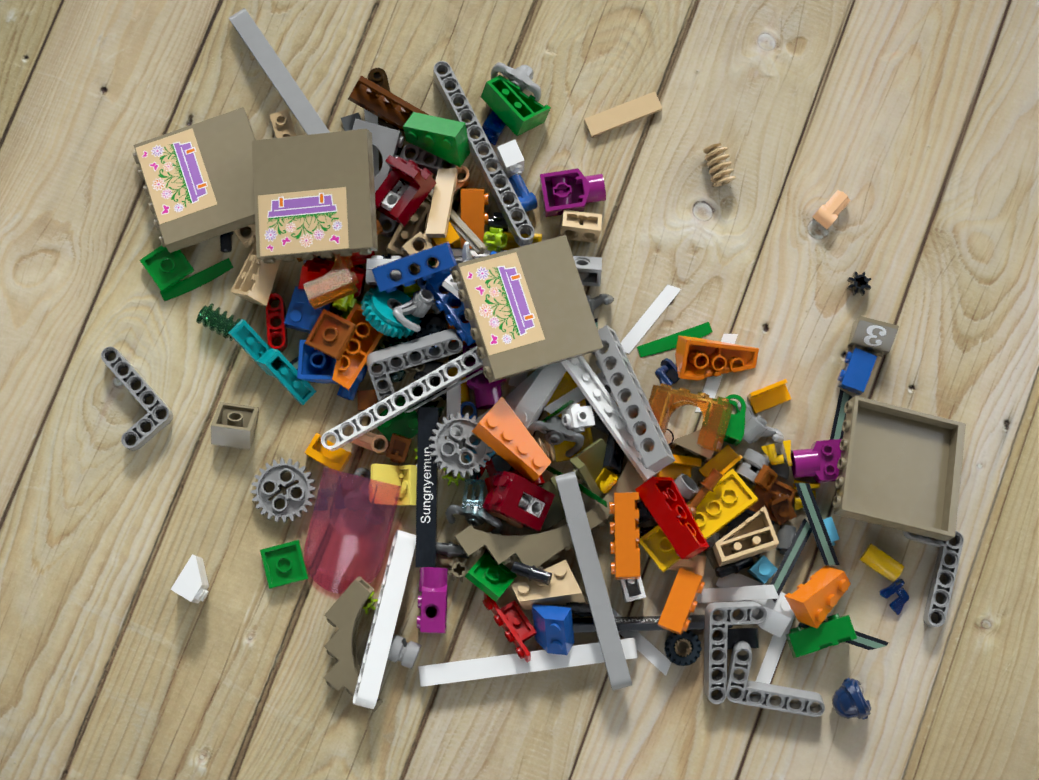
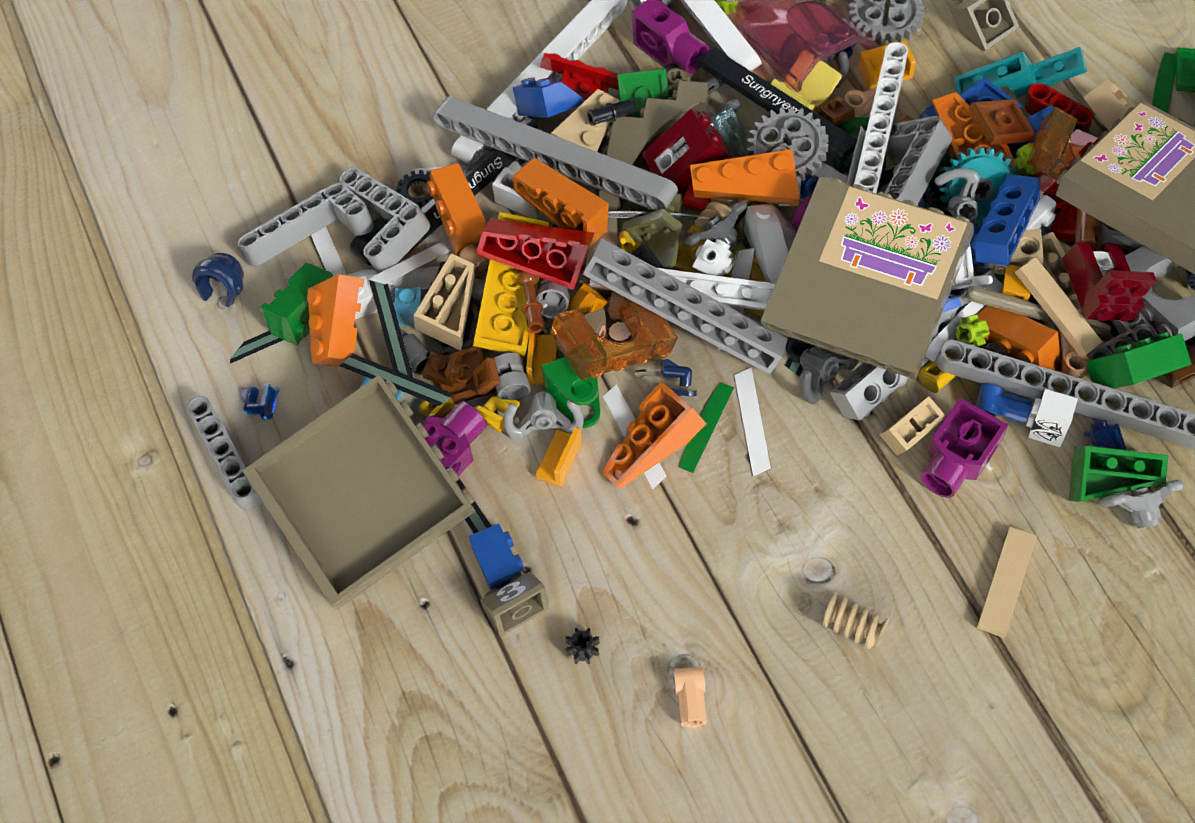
camera: 140 degrees right, 20 degrees down
(217, 321) = (1105, 66): clear green piece -> none
(882, 563) = (296, 416): yellow brick -> none

